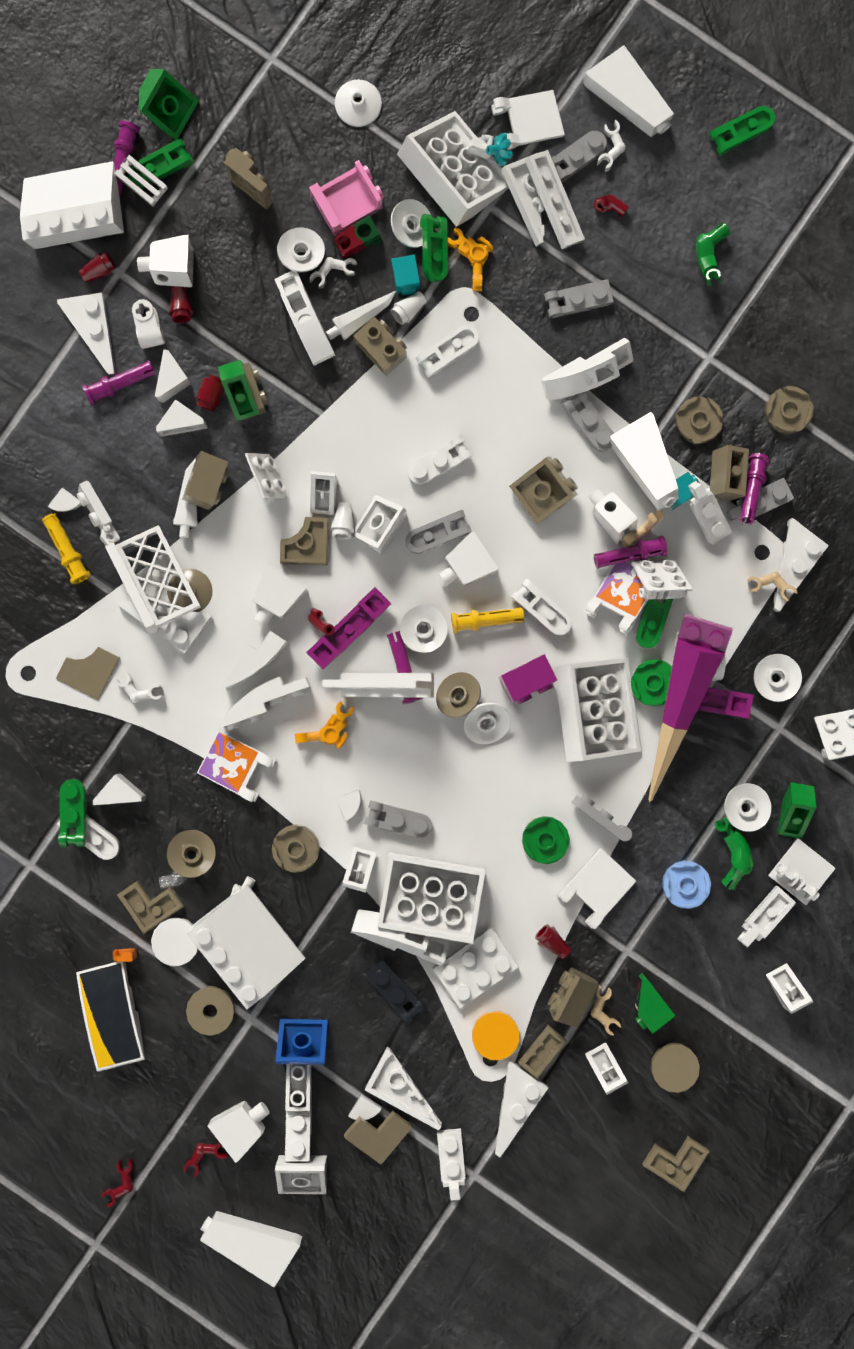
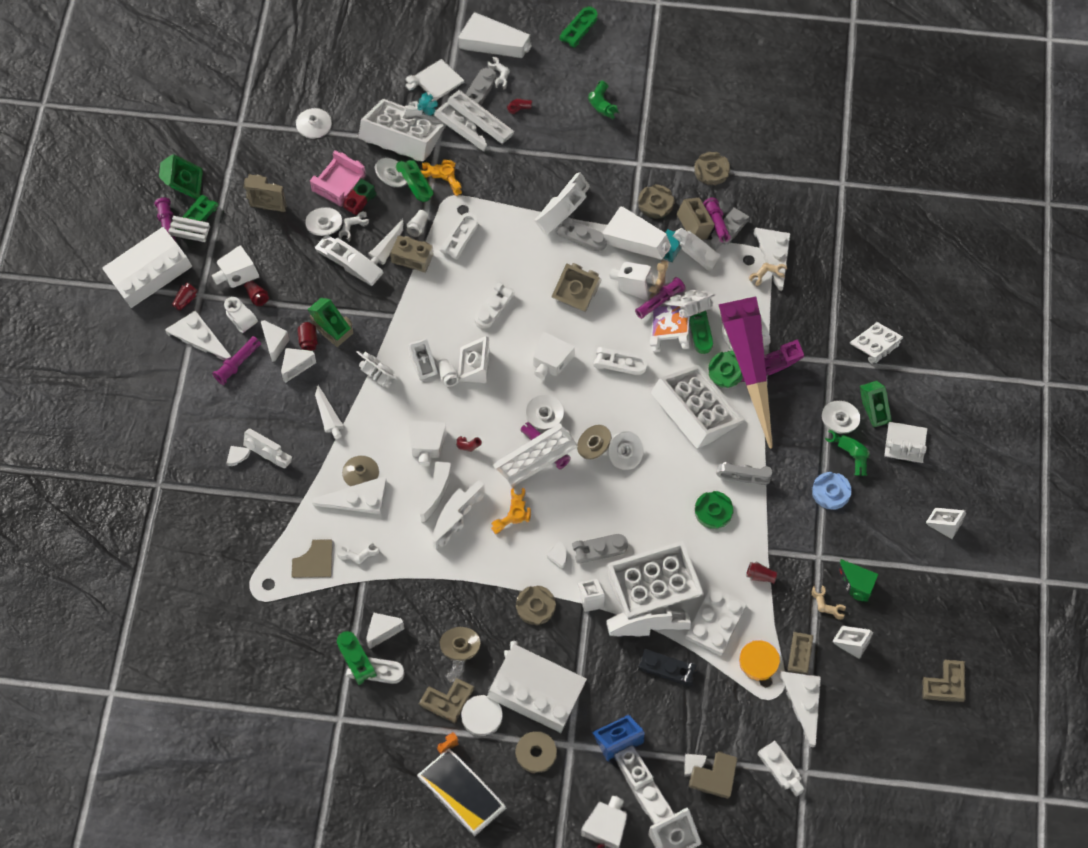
camera: 25 degrees left, 25 degrees down
(70, 558) = (261, 489): yellow pin -> none
(132, 581) = (320, 482): white fence -> none
(205, 481) = (335, 390): dark tan brick -> none
(233, 764) = (457, 569): flag -> none
(308, 545) = (430, 401): dark tan tile -> none
(349, 628) = (492, 436): magenta slope -> none
(396, 1087) = (706, 734): white wing -> none
(405, 274) = (404, 204): teal brick -> none
(437, 533) = (518, 349): light grey plate -> none
(476, 620) = (577, 390): yellow pin -> none
(527, 679) = (637, 405): magenta brick -> none
(572, 997) = (798, 600): dark tan slope -> none
(579, 298) = (531, 167): light grey plate -> none
(599, 885) = (770, 519): white flag -> none
(675, 1067) = (902, 617): dark tan tile -> none
(766, 916) = (900, 482): white hinge -> none
(789, 677) = (808, 320): white dish -> none

